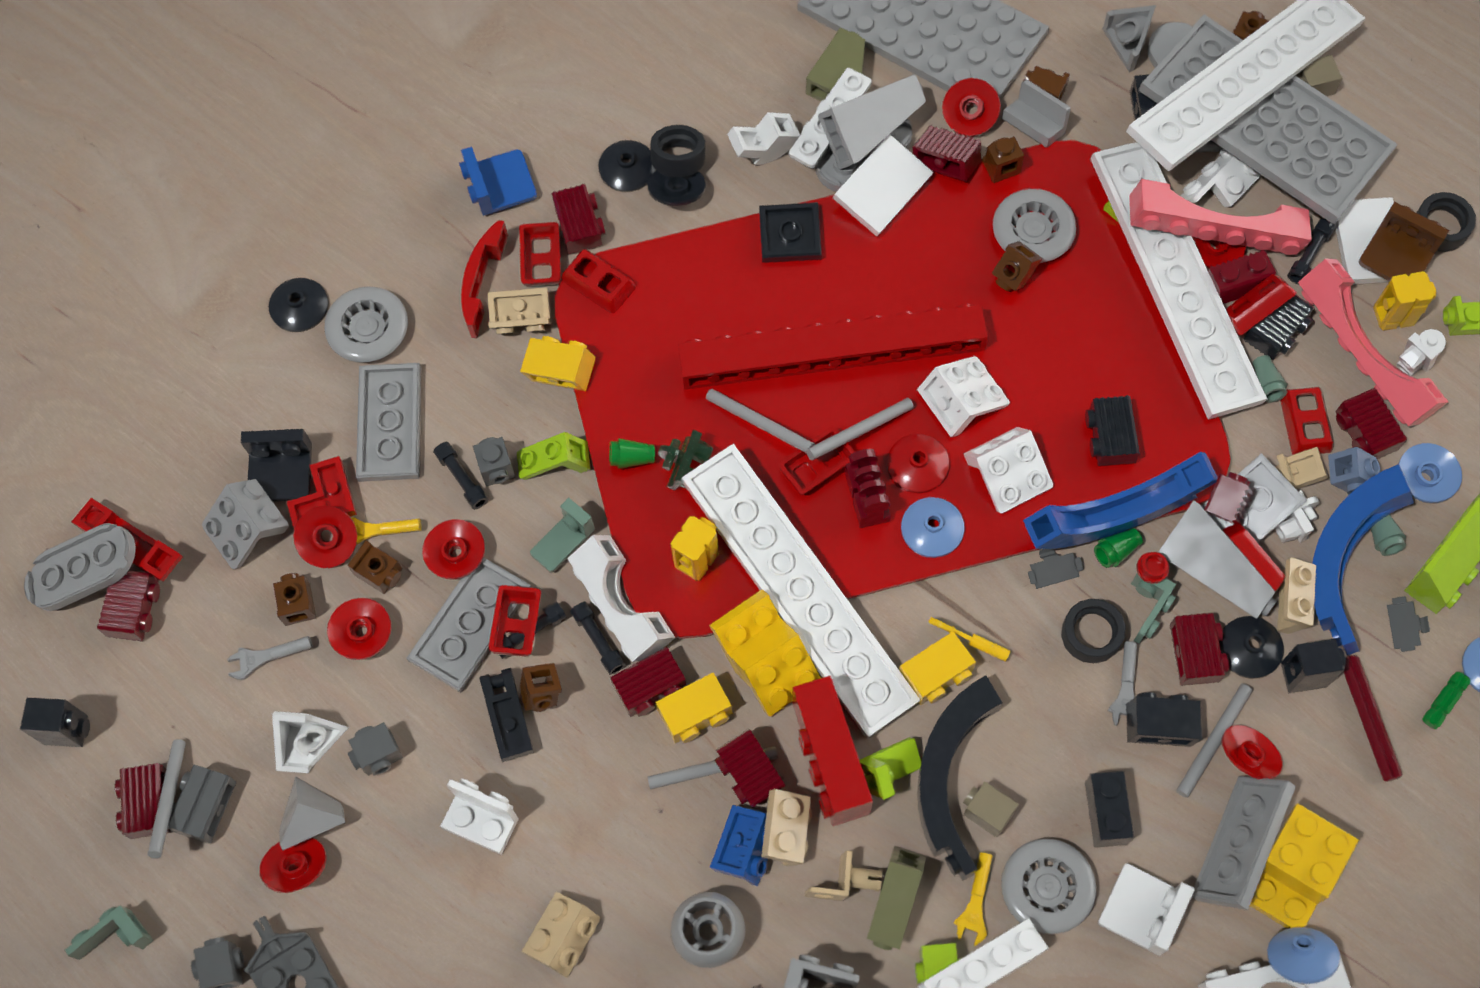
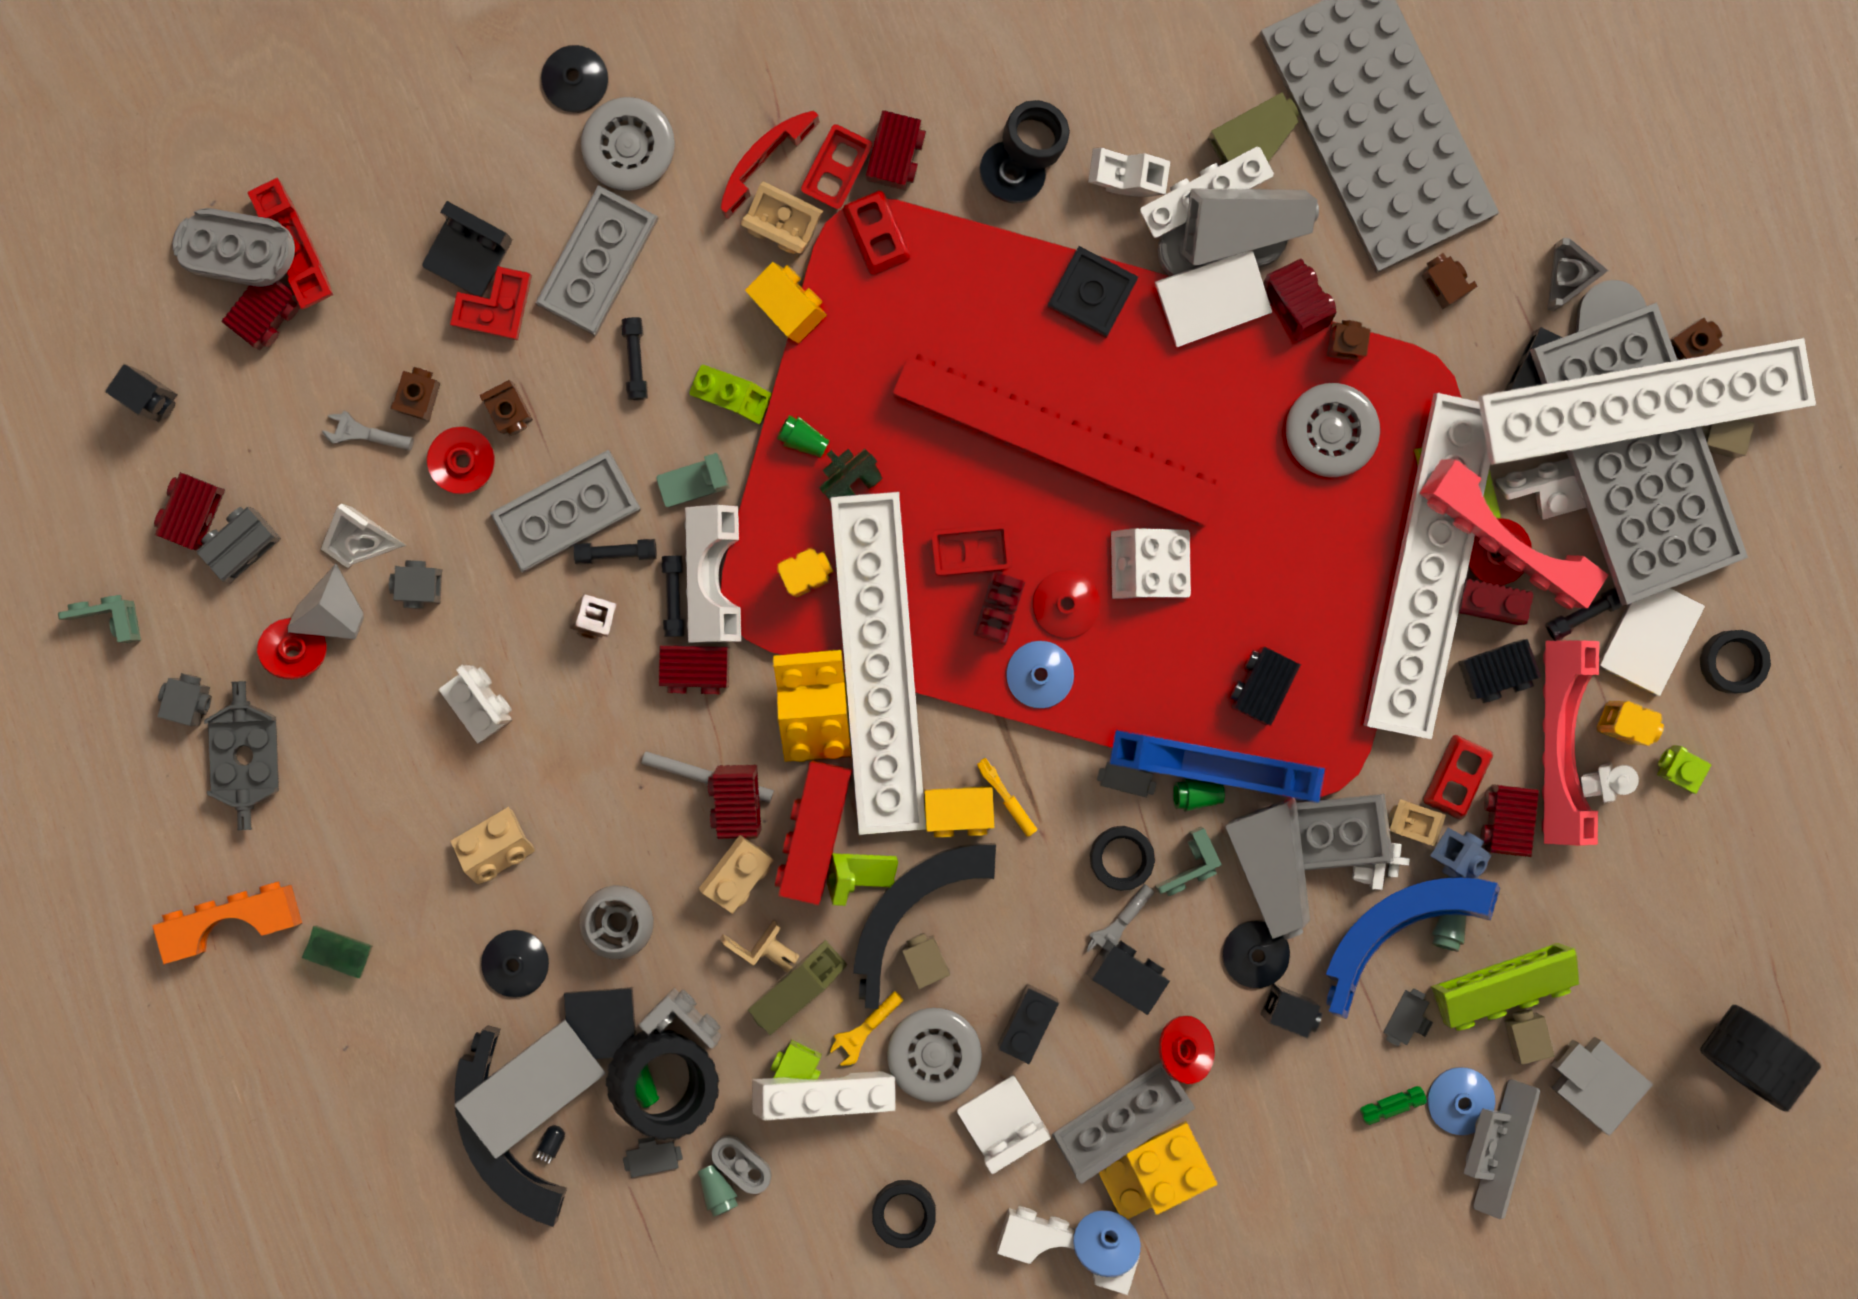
camera: 30 degrees right, 20 degrees up
(166, 799) = (209, 524): light grey bar -> none
(240, 519) = (407, 288): light grey bracket -> none
(309, 538) = (463, 356): red dish -> none
(368, 530) = (513, 360): yellow piece -> none
(444, 540) = (573, 424): red dish -> none
(493, 461) = (671, 366): dark grey brick -> none
(498, 180) = (840, 58): blue bracket -> none
(502, 624) = (593, 536): red piece -> none
(506, 716) = (551, 620): black plate -> none
(630, 175) = (975, 130): black dish -> none
(694, 708) = (720, 716): yellow brick -> none
(741, 846) = (690, 863): blue bracket -> none
(759, 420) = (941, 477): light grey bar -> none
(859, 429) = (1030, 542): light grey bar -> none
(966, 93) = (1341, 262): red dish -> none
(1011, 468) = (1146, 662): white bracket -> none
(1024, 263) = (1278, 466): reddish brown brick -> none
(1038, 114) = (1417, 309): light grey panel -> none
(1152, 567) = (1208, 839): red plate -> none
(1198, 649) = (1204, 931): dark red brick -> none
(1214, 740) = (1163, 1017): light grey bar -> none
(1230, 498) = (1318, 823): brick -> none
(1255, 555) = (1309, 882): red piece -> none
(1259, 303) = (1487, 648): red piece -> none
(1270, 379) = (1450, 718): sand green cone -> none
(1296, 596) = (1324, 939): tan bracket -> none
(1371, 719) = (1315, 1080): dark red axle -> none
(1402, 243) = (1669, 668): reddish brown bracket -> none
(1441, 467) = (1547, 902): medium blue dish -> none

